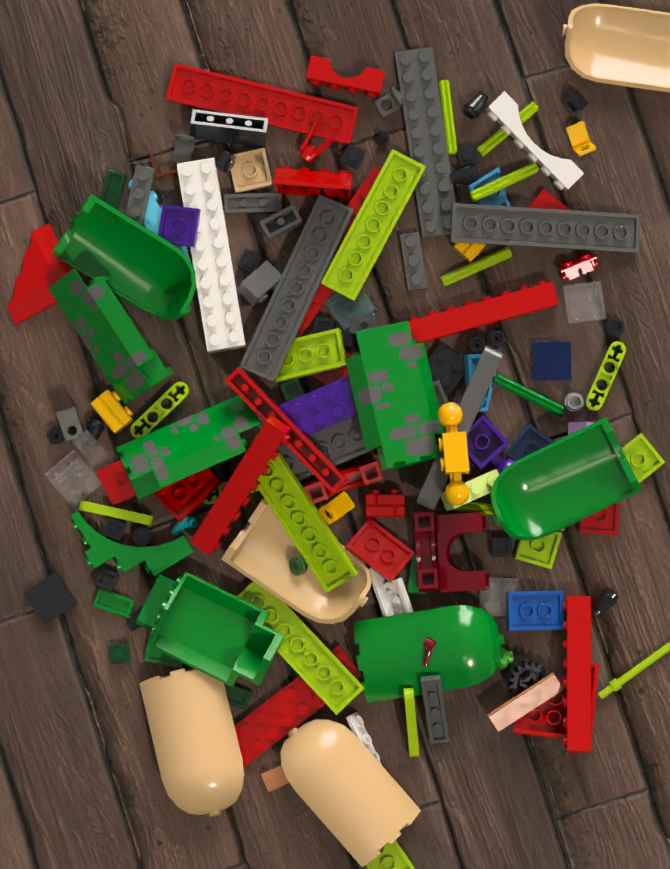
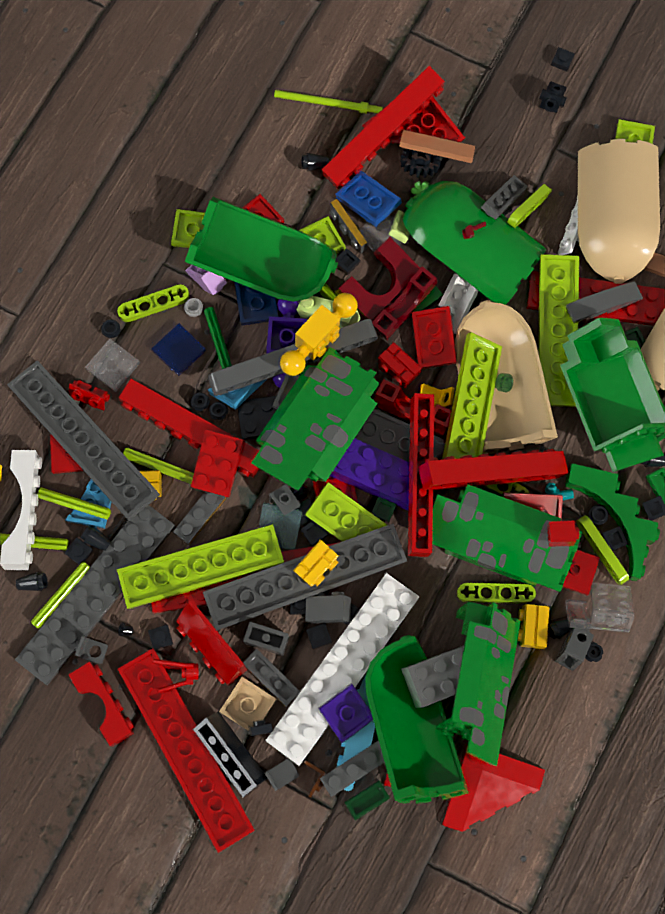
camera: 140 degrees left, 10 degrees down
(146, 306) = (434, 677): none -> light grey brick
(148, 474) = (562, 533): none -> red brick
(284, 698) = (603, 302): none -> dark grey slope
(296, 300) = (316, 563): none -> yellow brick
(435, 304) = (217, 463): none -> red plate
(481, 836) = (553, 97): none -> black brick
(487, 604) = (398, 228): none -> yellowish green tile
(528, 573) = (347, 226): none -> plate

